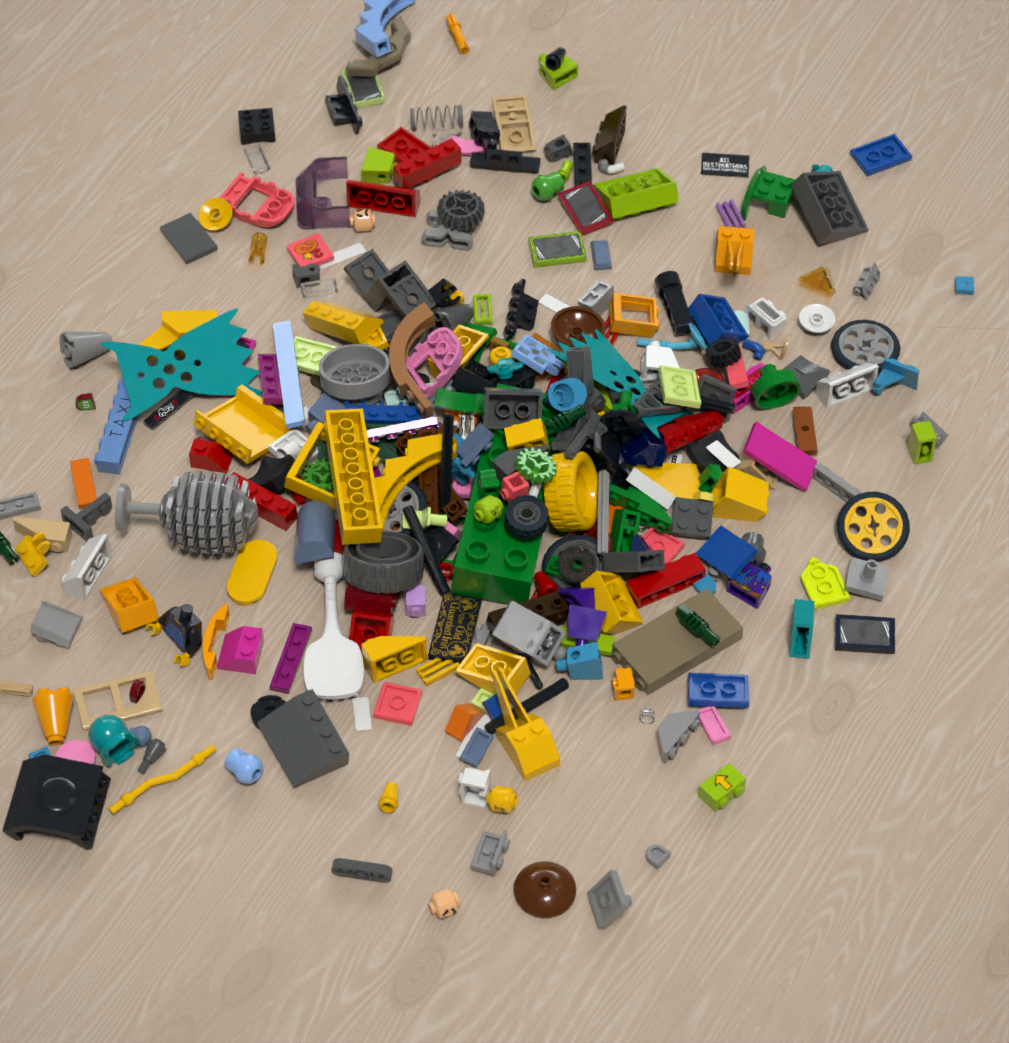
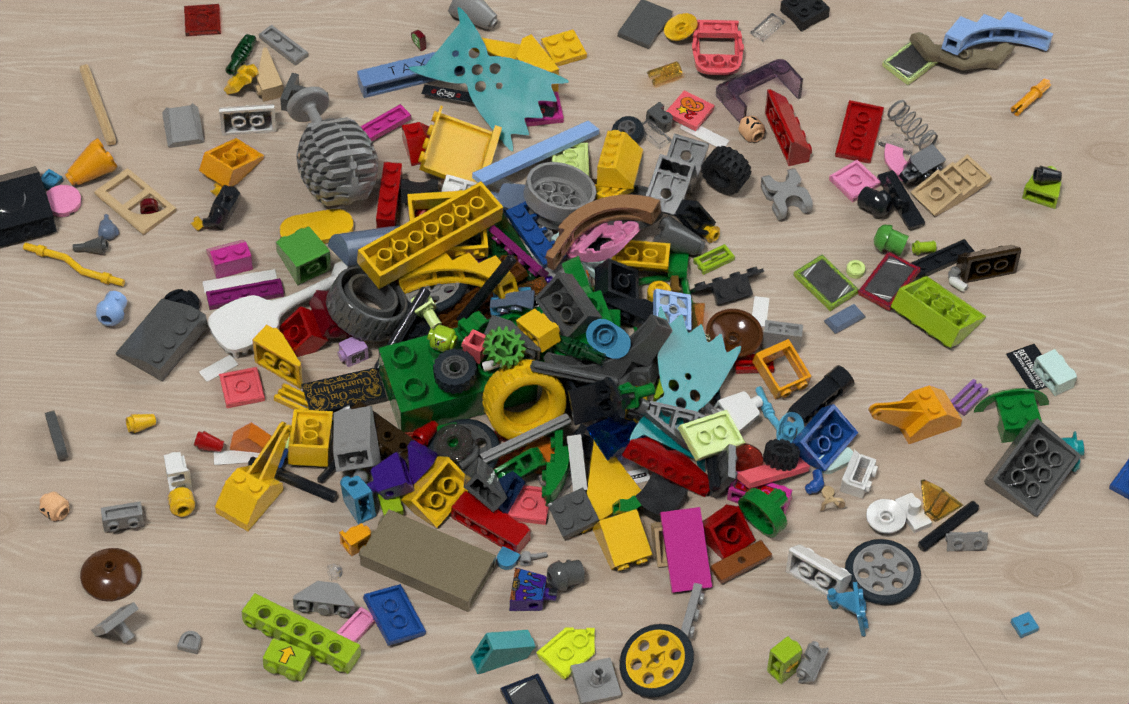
camera: 60 degrees right, 0 degrees up
(83, 482) = (339, 76): orange tile -> none
(112, 739) = (85, 211): teal tile -> none
(166, 467) = (386, 122): none -> dark pink plate
(172, 301) = (564, 48): none -> yellow plate
(218, 622) = (225, 230): light orange slope -> none
(269, 379) = (518, 143): magenta plate -> none
(270, 657) = (232, 281): none -> white sticker
(284, 589) = (304, 255): none -> bright green slope
(303, 296) = (631, 124): none -> black wheel
(342, 106) = (871, 54): black bracket -> none
(378, 166) = (822, 112): lime torso -> none
(405, 246) = (726, 170): none -> black tyre
(427, 164) = (845, 141): red brick -> none
(444, 755) = (208, 442): none -> red cone
(461, 210) = (803, 186): dark grey gear -> none
(464, 178) = (853, 179): none -> bright pink tile
(476, 747) = (226, 460): sand blue tile -> none
(500, 176) = (875, 201): none -> black piece
(505, 368) = (635, 295): teal plate -> none
(555, 224) = (855, 269): none -> yellowish green tile
(558, 148) = (946, 230): dark grey leg -> none
(595, 434) = (583, 380): dark grey bar -> none
(688, 765) = (295, 624): none -> lime brick
(697, 625) = (443, 562): dark green hinge -> none
(704, 496) = (600, 510): light yellow tile -> none
(723, 454) = (659, 504): white sticker -> none
(726, 552) = (545, 553): blue tile -> none
(743, 151) = (1055, 372): none -> light aqua brick
(771, 419) = (727, 531): none -> red slope
(807, 374) = (808, 532): dark grey plate -> none
(821, 297) = (914, 513): none -> white tile
(846, 286) = (949, 525): none -> black axle

